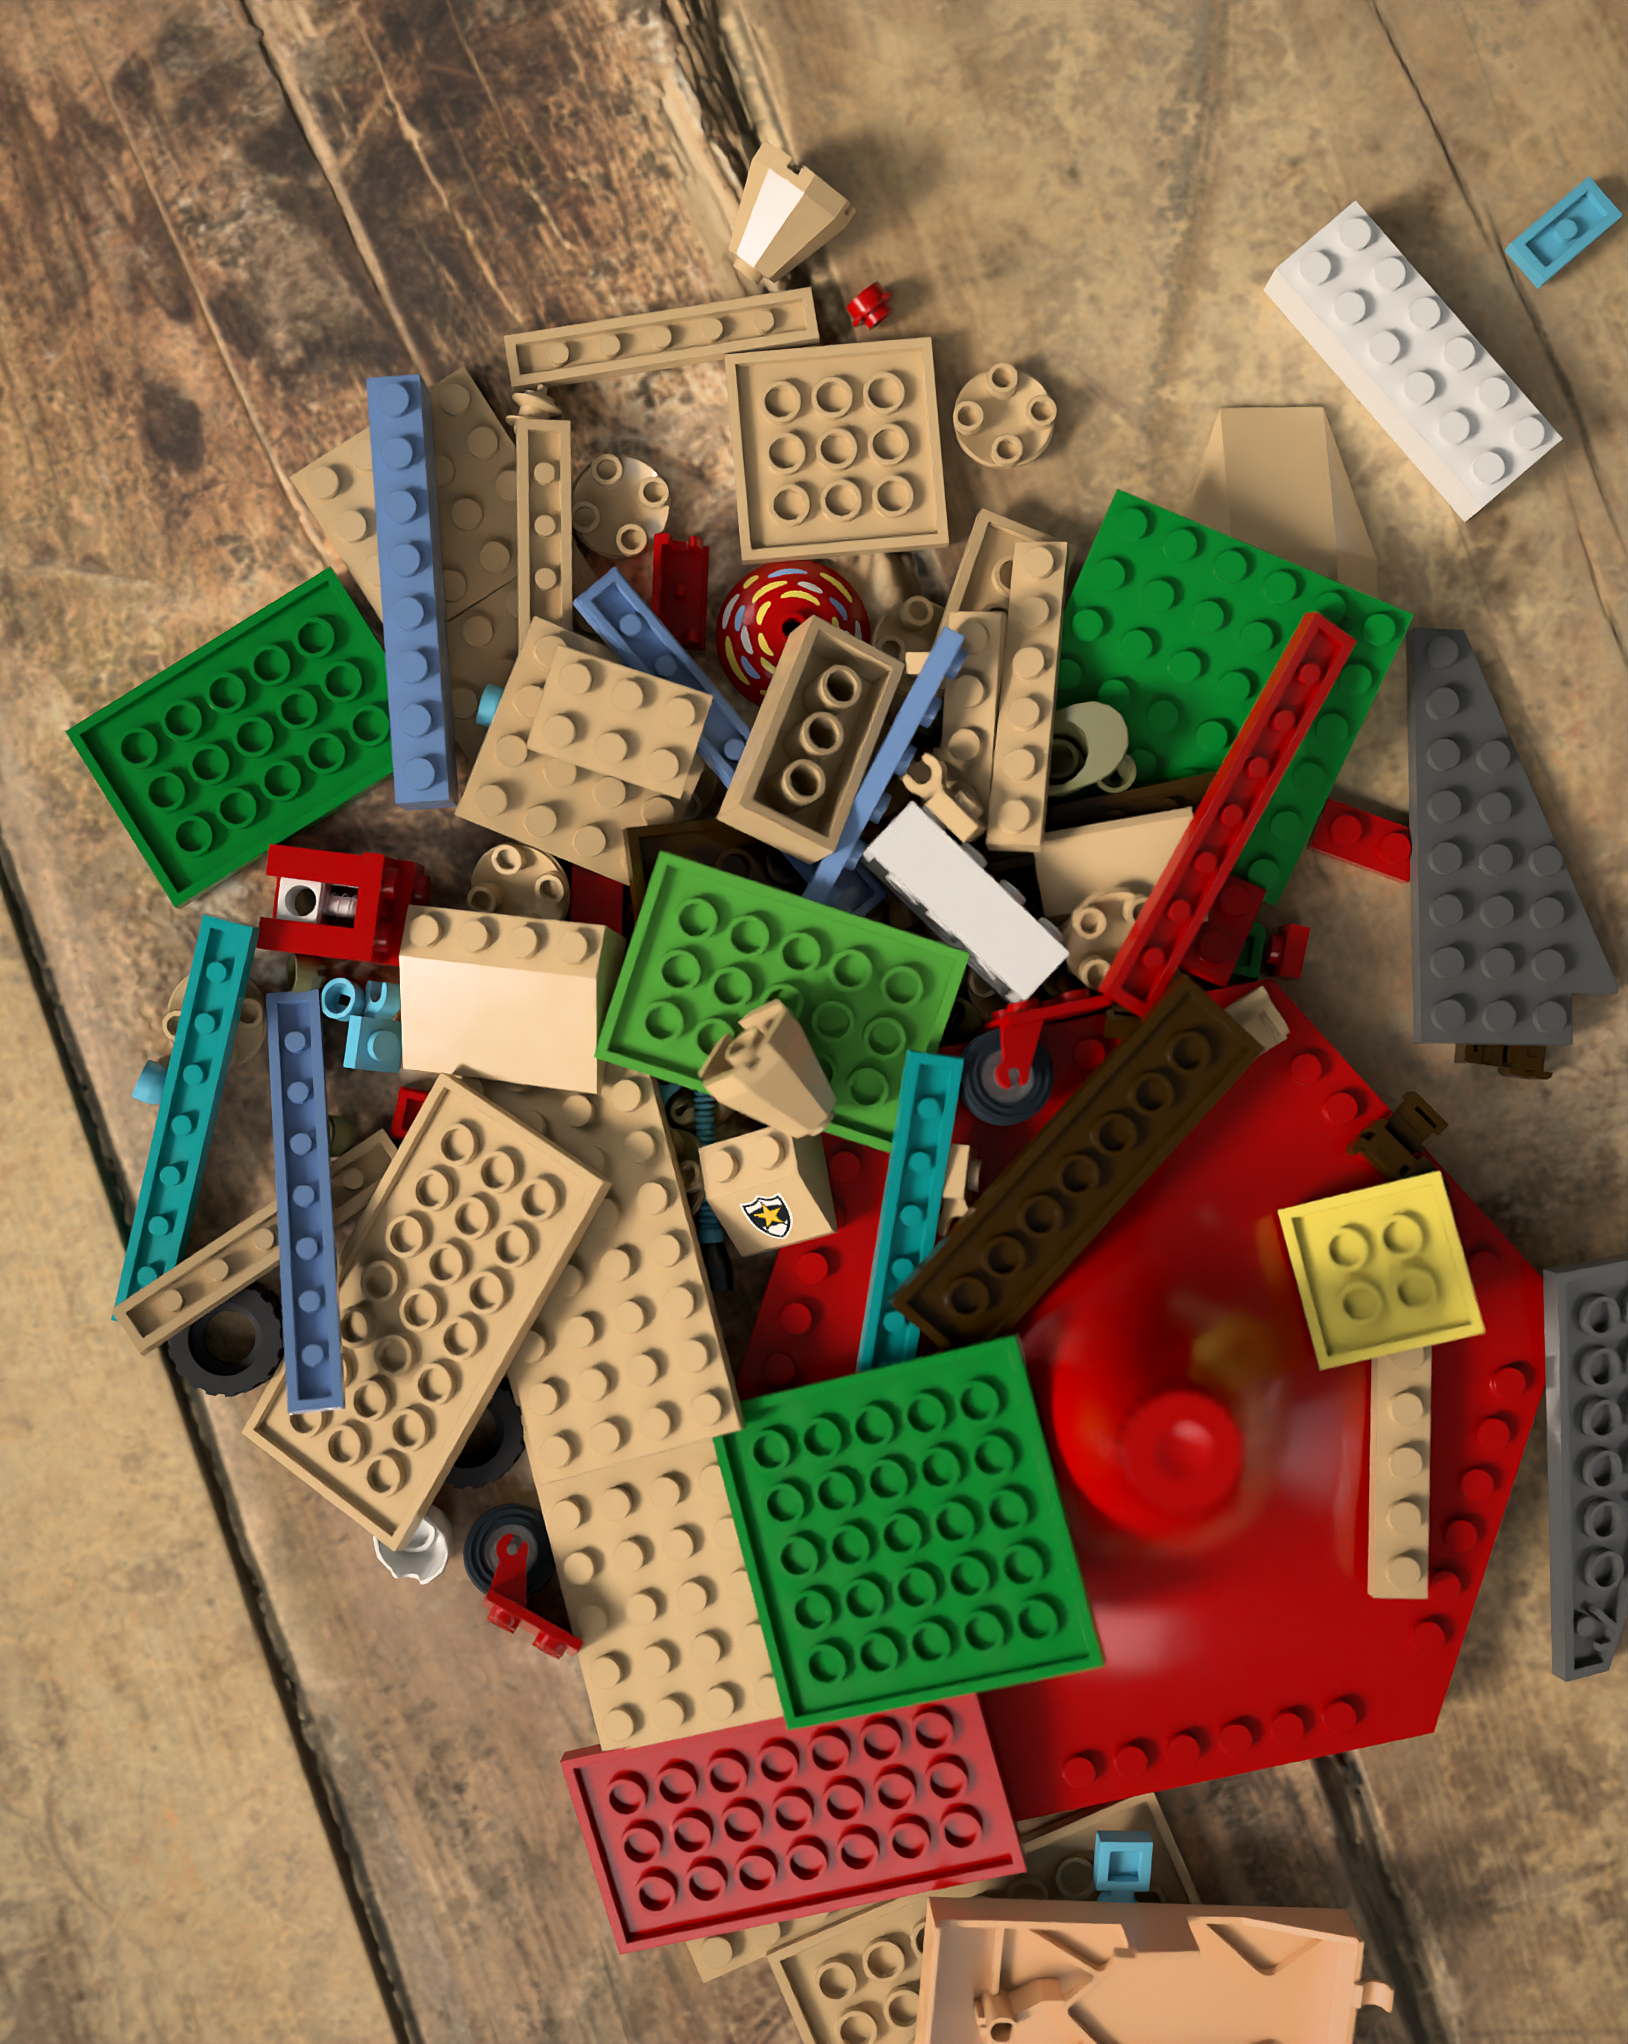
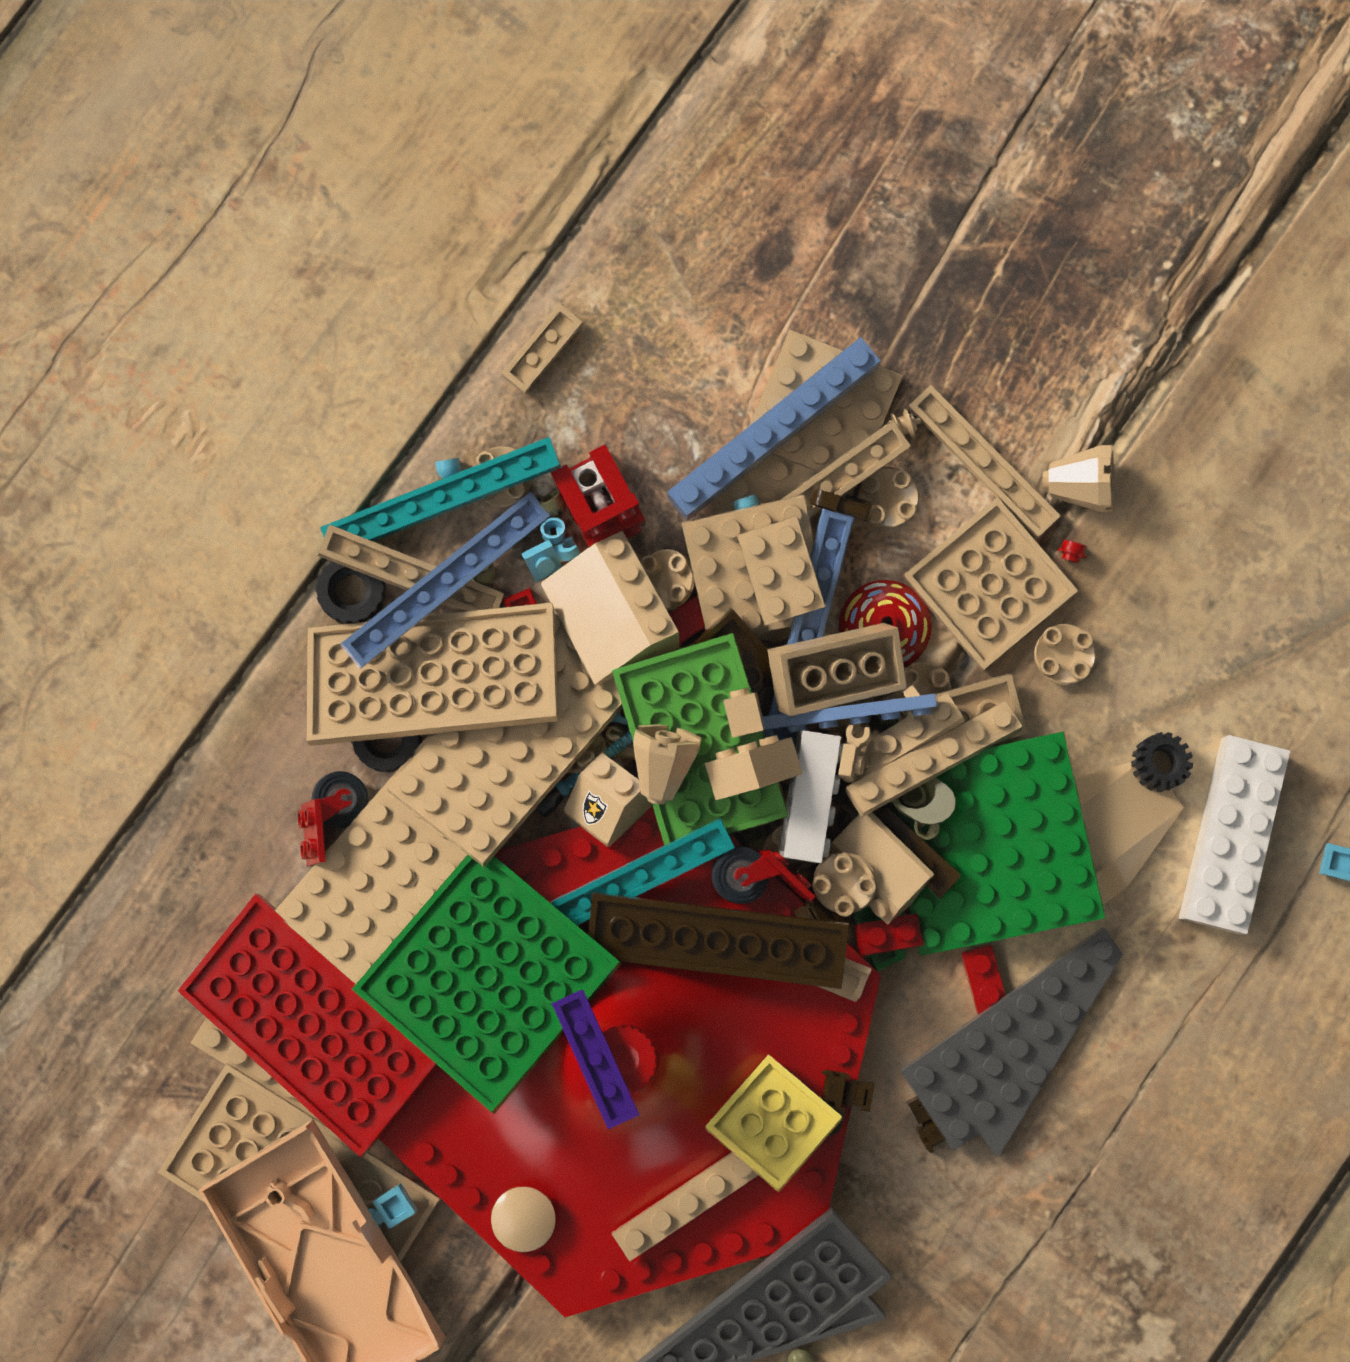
camera: 50 degrees right, 5 degrees down
(76, 838) = (542, 348): none -> tan plate
(246, 738) = (648, 397): green plate -> none
(427, 1551) = (310, 757): white hair -> none
(589, 568) = (846, 505): none -> dark brown piece
(681, 588) = (868, 555): red hinge -> none
(785, 914) = (744, 713): none -> tan brick
(871, 954) = (753, 766): none -> tan brick
(962, 1177) = (674, 889): tan plate -> none
(1157, 1495) = (595, 1059): none -> dark purple plate
(1227, 814) = (942, 893): red plate -> none
(1248, 364) = (1177, 755): none -> black tyre
(1266, 1702) = (523, 1219): none -> tan dish
(1287, 951) = (900, 976): red plate -> none

